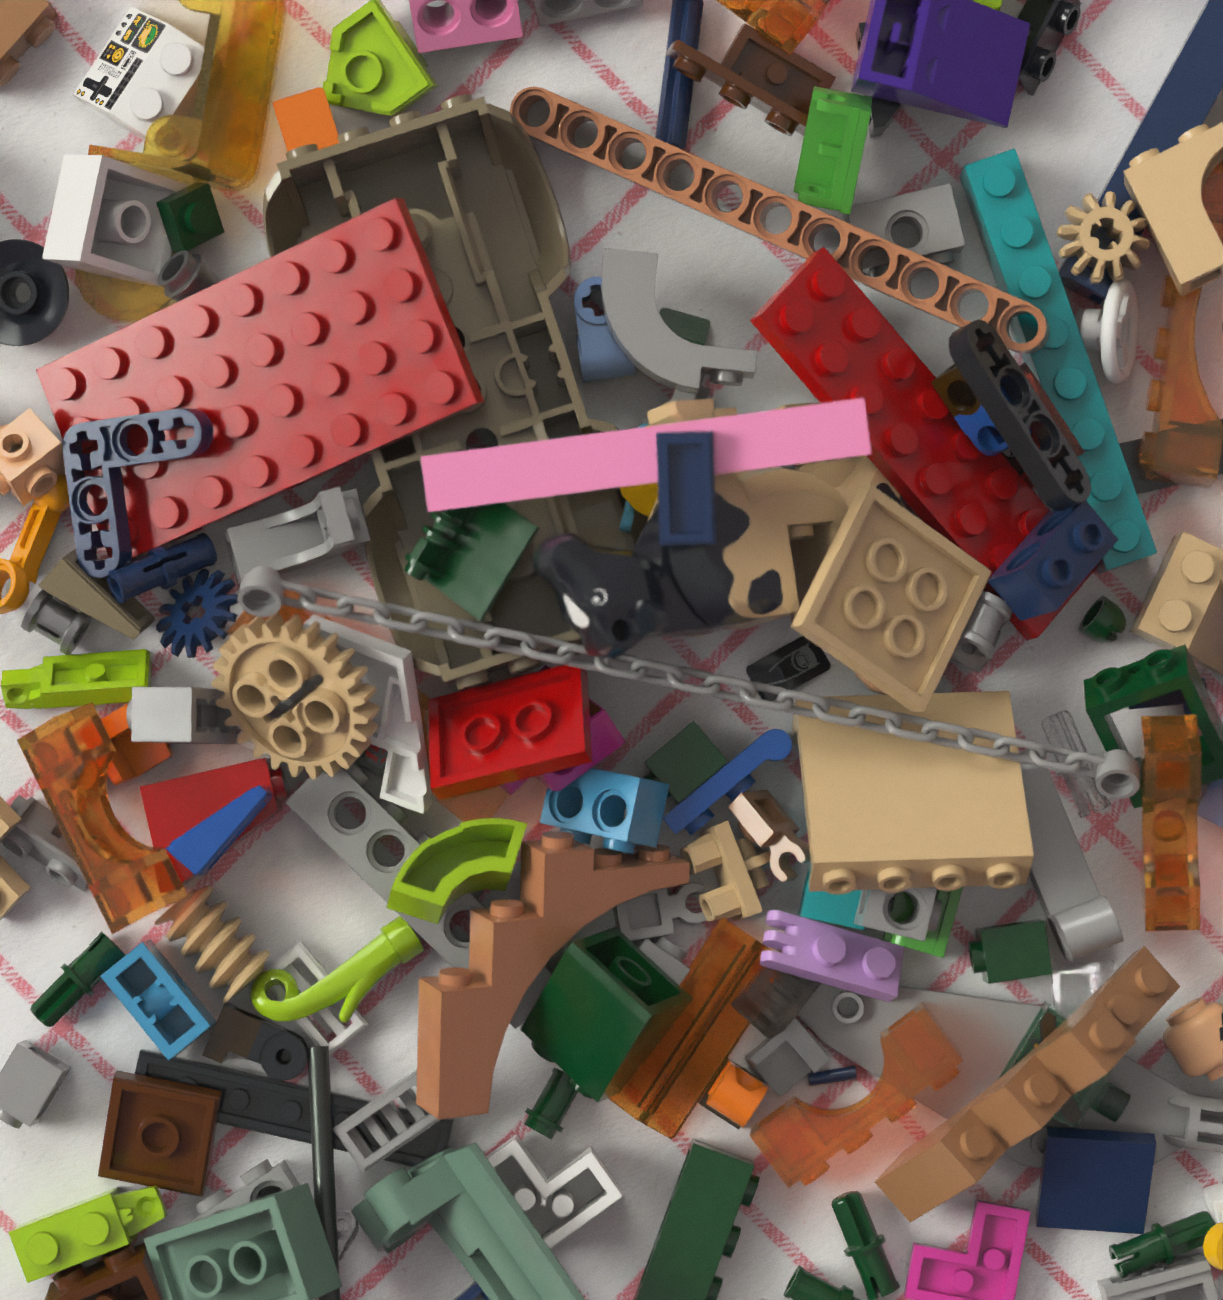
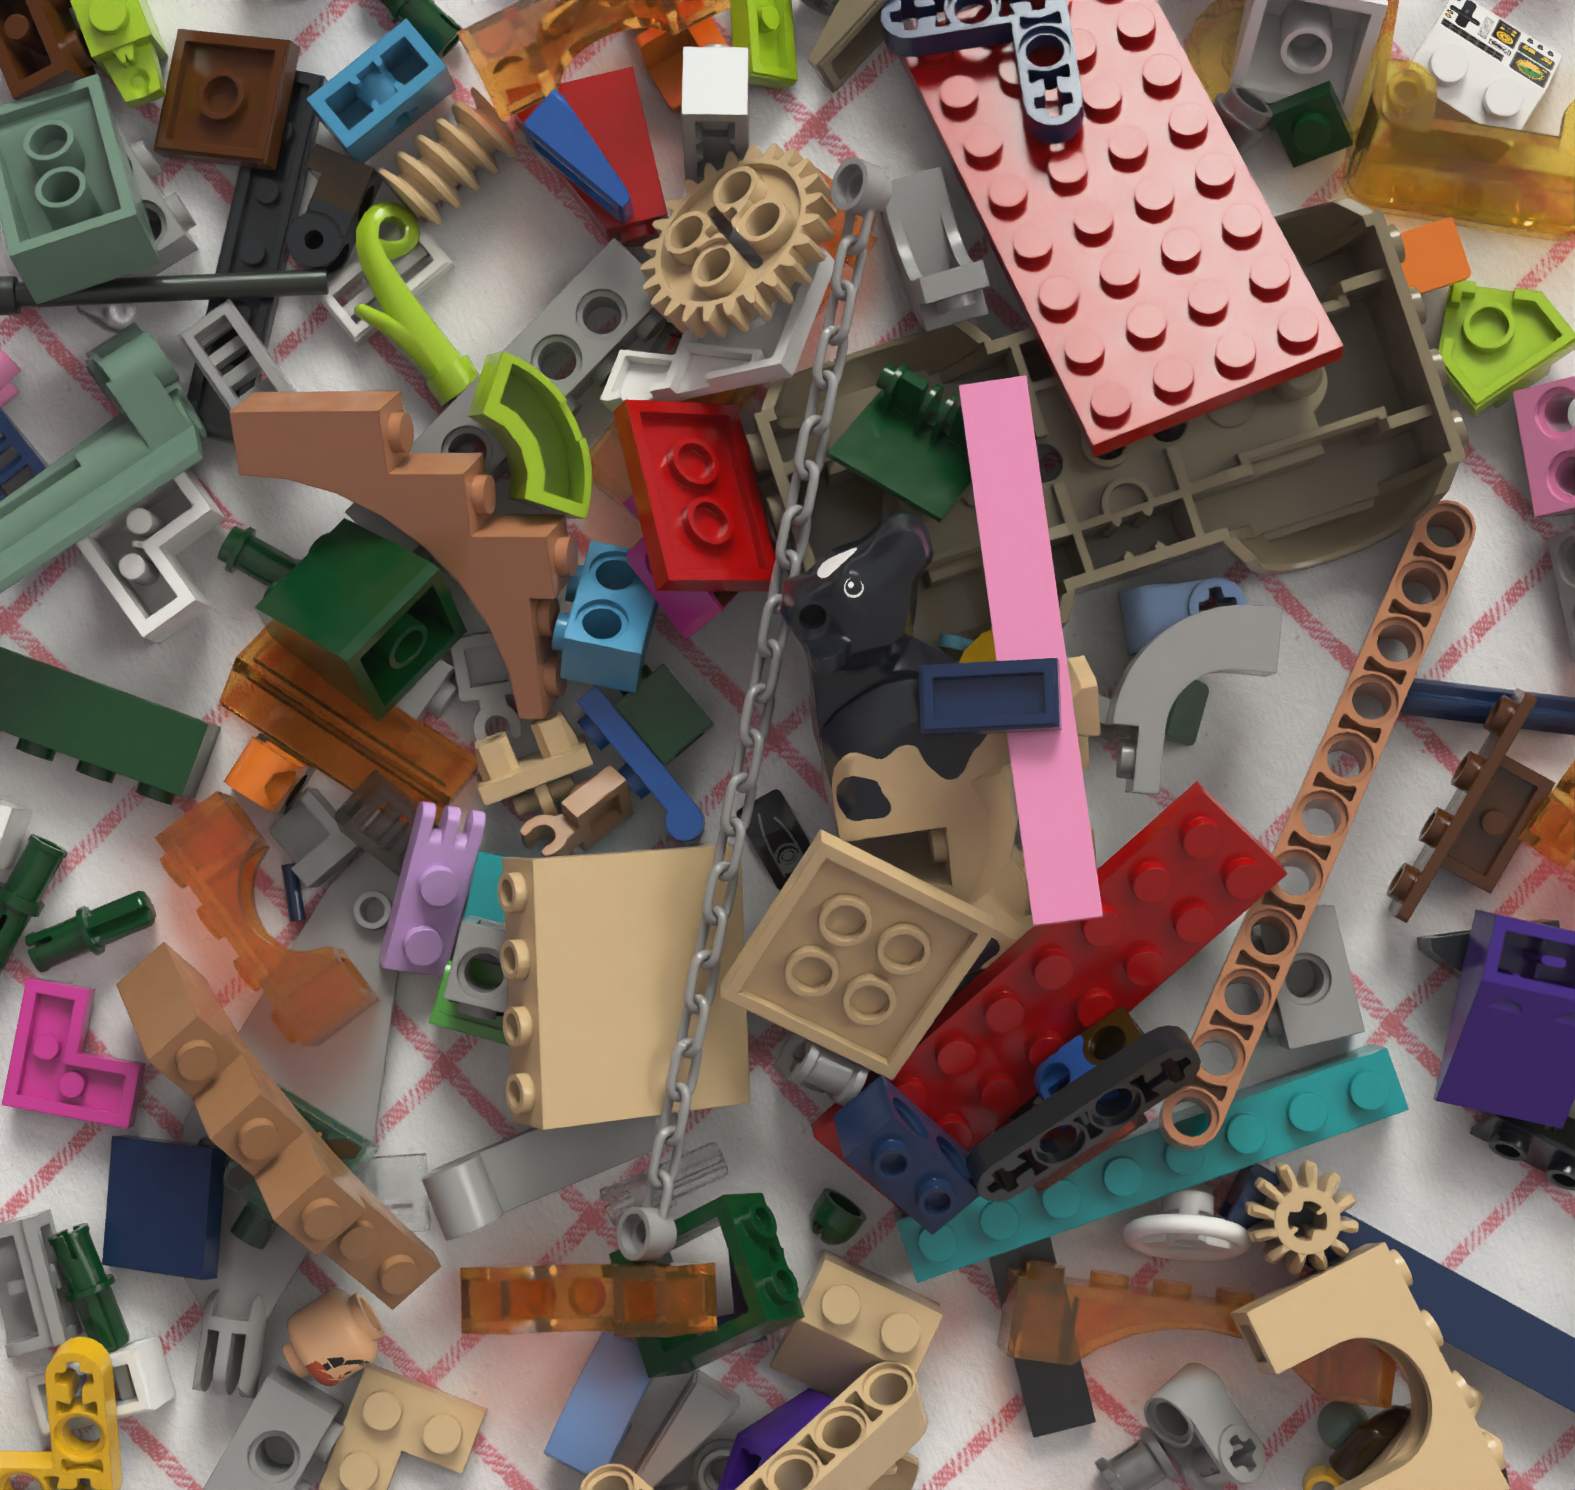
camera: 85 degrees right, 0 degrees up
(161, 567) = (893, 93): dark blue pin -> none
(200, 631) = (816, 128): dark blue gear -> none
(832, 149) = (1405, 887): bright green hinge -> none
(1011, 951) = (438, 1105): dark green brick -> none

